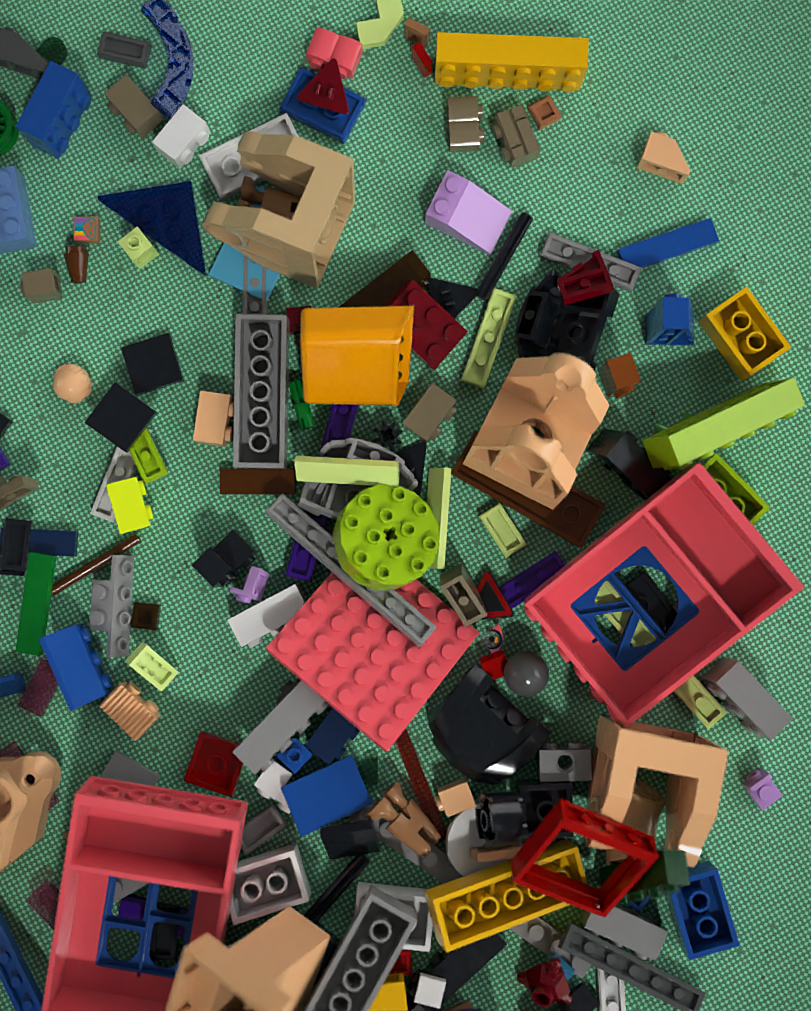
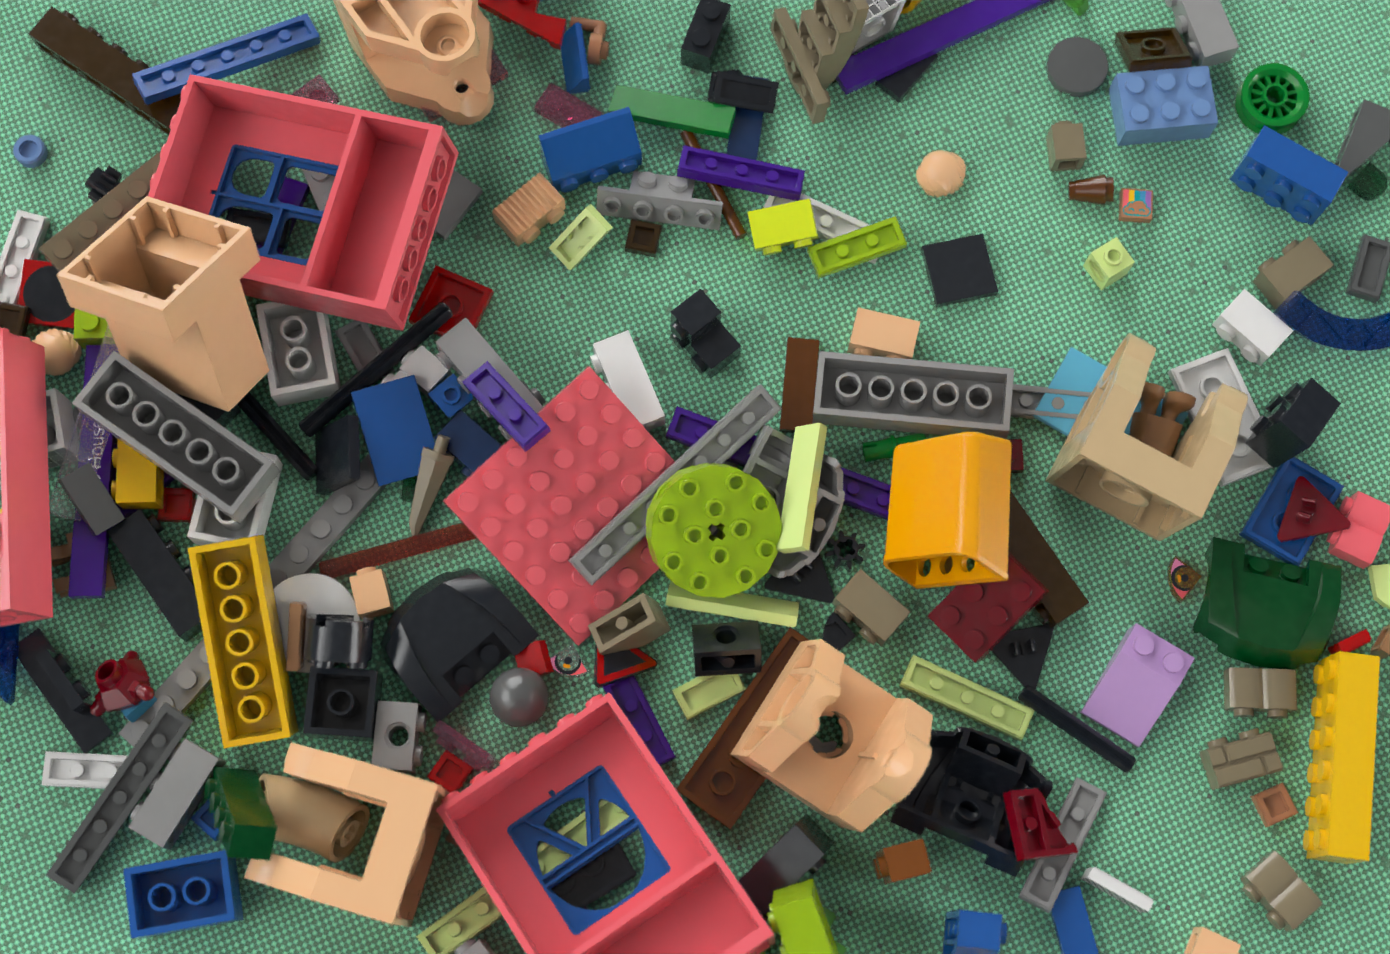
camera: 95 degrees right, 10 degrees down
(85, 542) = (741, 173): none -> dark purple tile
(120, 417) = (892, 224): black tile -> none
(165, 216) = (1149, 301): clear blue tile -> none
(254, 586) = (666, 367): lavender bracket -> none
(258, 101) = (1292, 422): none -> black brick
(275, 818) = (375, 369): none -> black axle
(305, 710) = (506, 406): none -> dark purple tile
(361, 763) = (431, 475): none -> dark tan bar
(383, 184) = (1181, 579): none -> clear orange tile
(401, 119) = (1267, 608): none -> dark green piece
(408, 824) = (347, 526): medium nougat piece -> none
(429, 990) = (138, 533): white tile -> none
(451, 438) = (837, 632): none -> black tile
(481, 528) = (726, 648): none -> black brick
(566, 815) = (309, 754): red window -> none
(571, 701) = (475, 755): none -> clear pink plate
(584, 718) = (450, 772): none -> red tile
(607, 106) = (1280, 892): none -> dark tan brick
(619, 221) = (1117, 889): none -> white tile

